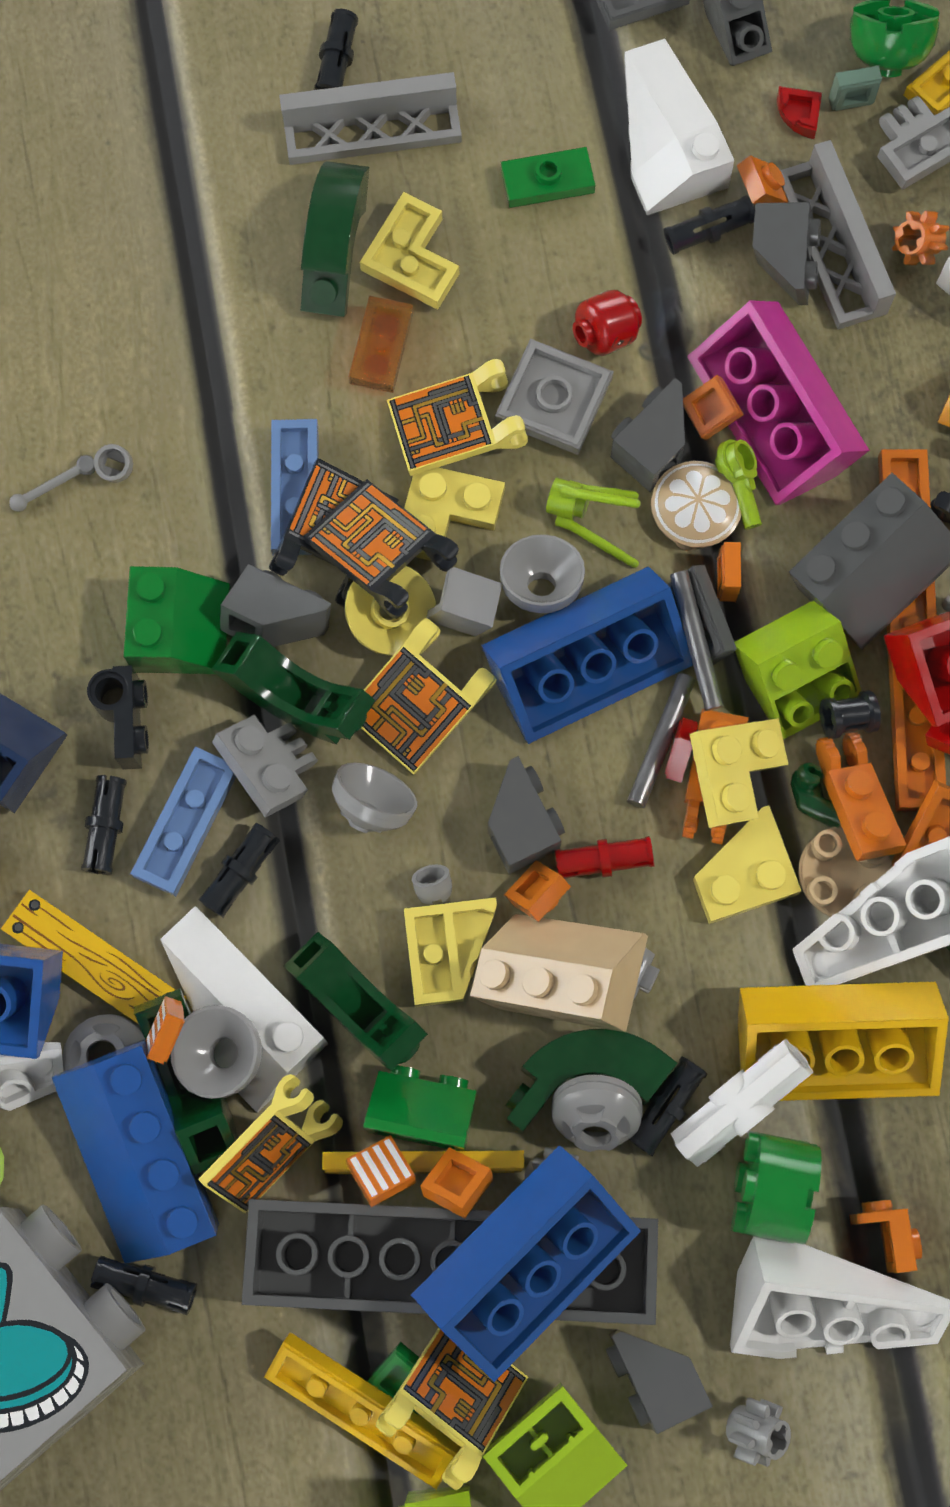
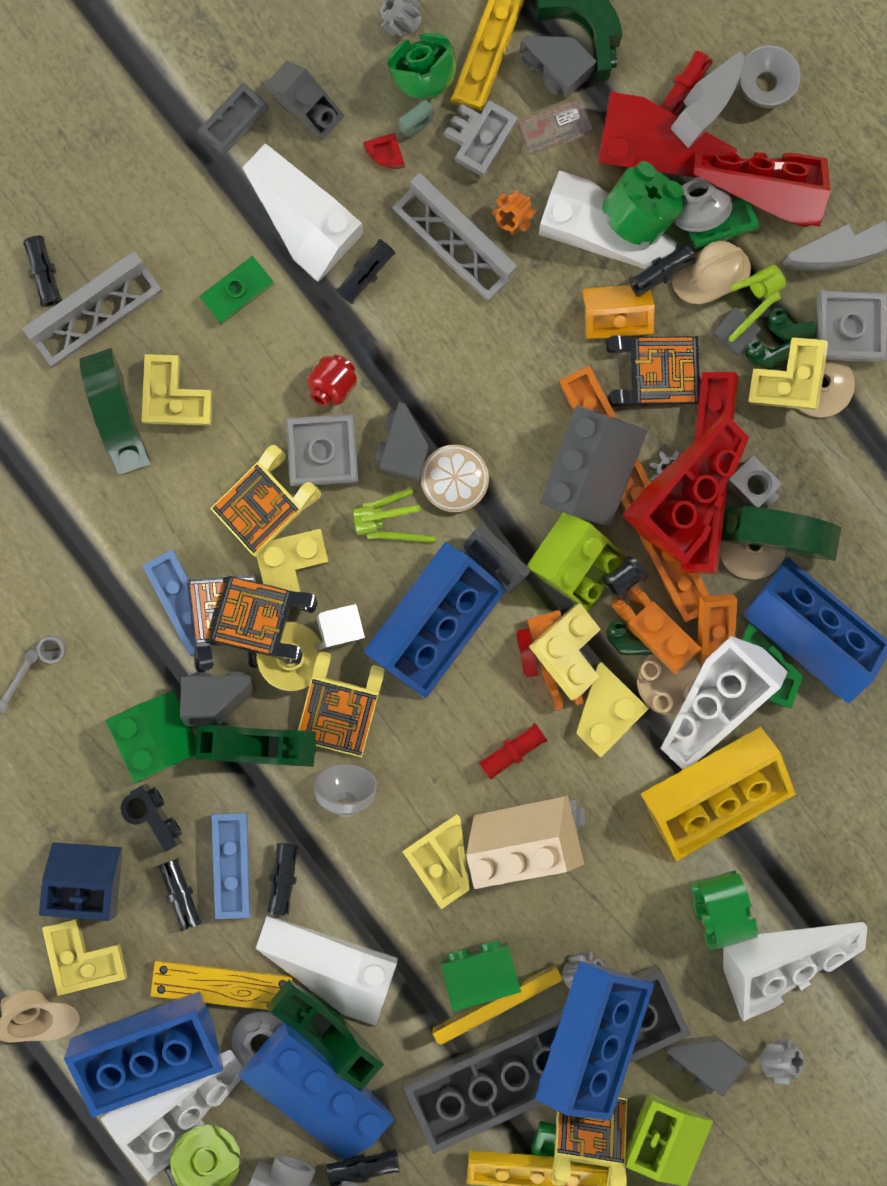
camera: 25 degrees left, 10 degrees up
(165, 1030) = (295, 1014): orange tile -> none
(194, 1052) = (327, 1023): light grey piece -> none
(265, 762) = (263, 801): light grey hinge -> none
(269, 1146) = (398, 1047): flag -> none
(356, 1002) = (405, 929): dark green arch -> none
(381, 344) = (186, 472): clear orange plate -> none
(381, 1171) = (476, 1029): orange tile -> none
(432, 884) = (404, 821): light grey hinge -> none
(456, 1182) = (527, 1012): orange plate -> none
(519, 821) = (446, 756): dark grey slope -> none
(537, 891) = (481, 795): orange plate -> none
(546, 559) = (370, 569): light grey piece -> none
(588, 1053) = (596, 876): dark green arch -> none
(599, 1103) = (590, 921): light grey piece -> none
(661, 740) = (510, 652): flat silver bar -> none
(686, 1077) = (627, 913): black pin -> none
(696, 640) = (501, 577): flat silver bar -> none
(711, 407) = (431, 405): orange tile -> none
(729, 571) = (499, 517): orange tile -> none
(739, 464) = (469, 438): lime plate -> none
(741, 1102) = (677, 868): white piece -> none
(762, 181) = (387, 223): orange plate -> none
(784, 246) = (424, 264): dark grey slope -> none
(786, 402) = (473, 379): dark pink slope -> none
(900, 1242) = (814, 900): orange bracket -> none

